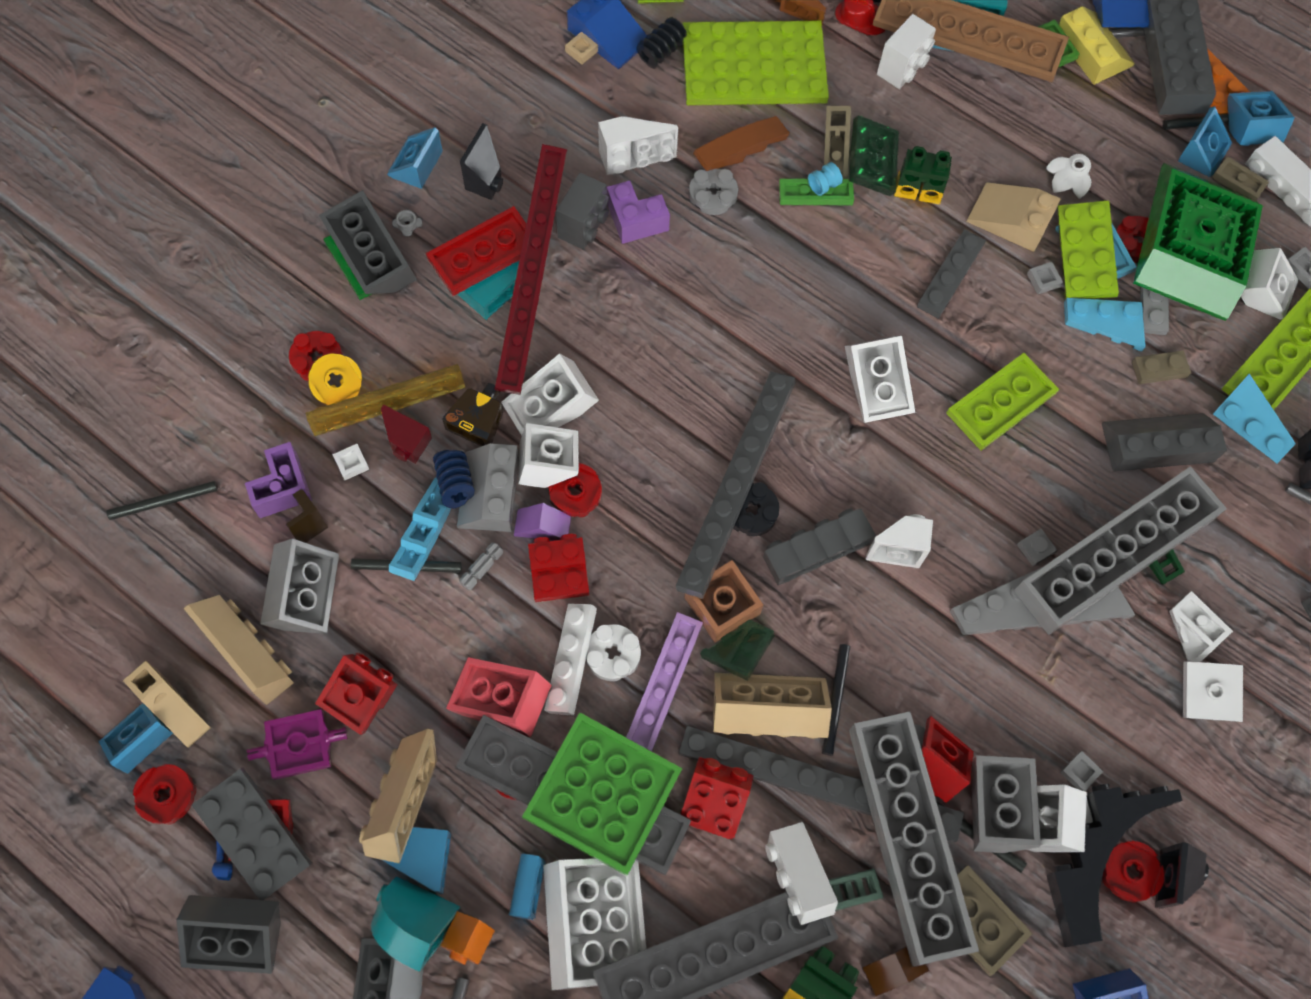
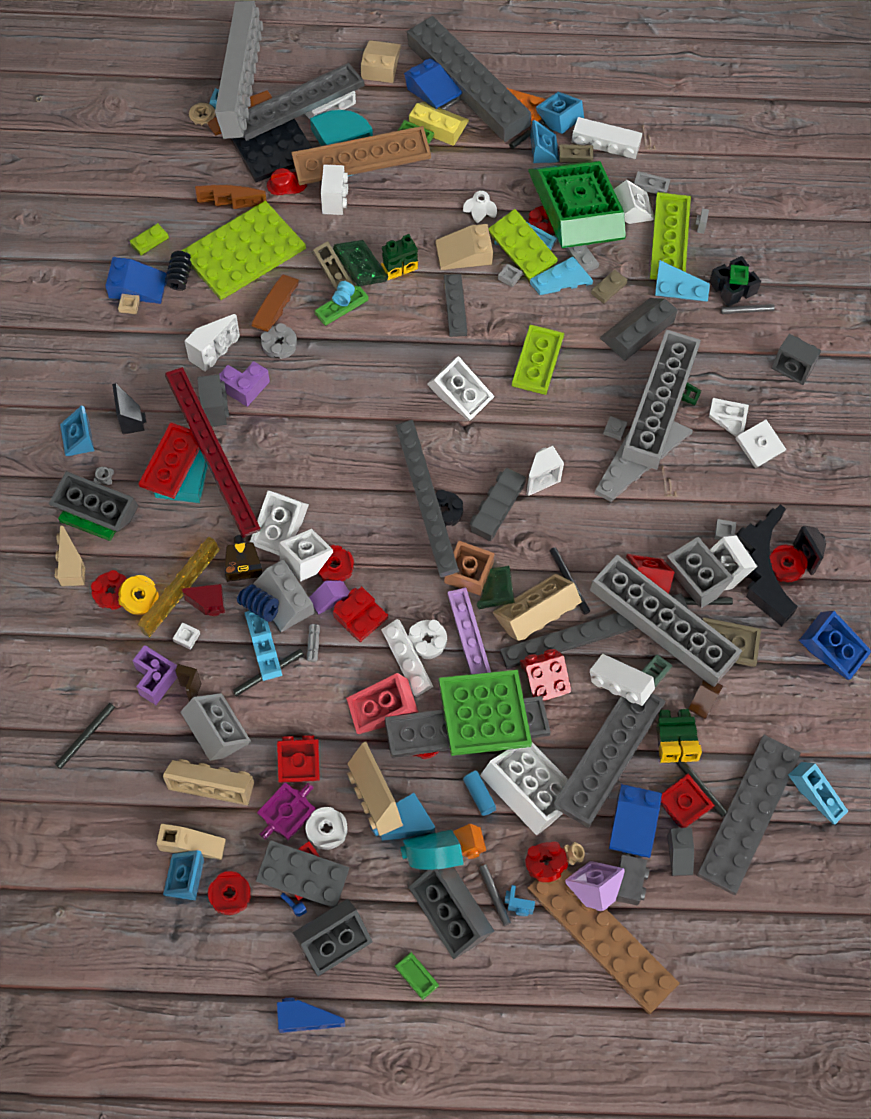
camera: 35 degrees left, 5 degrees down
(295, 296) = (70, 565): none -> tan slope
(319, 782) = (316, 822): none -> white plate

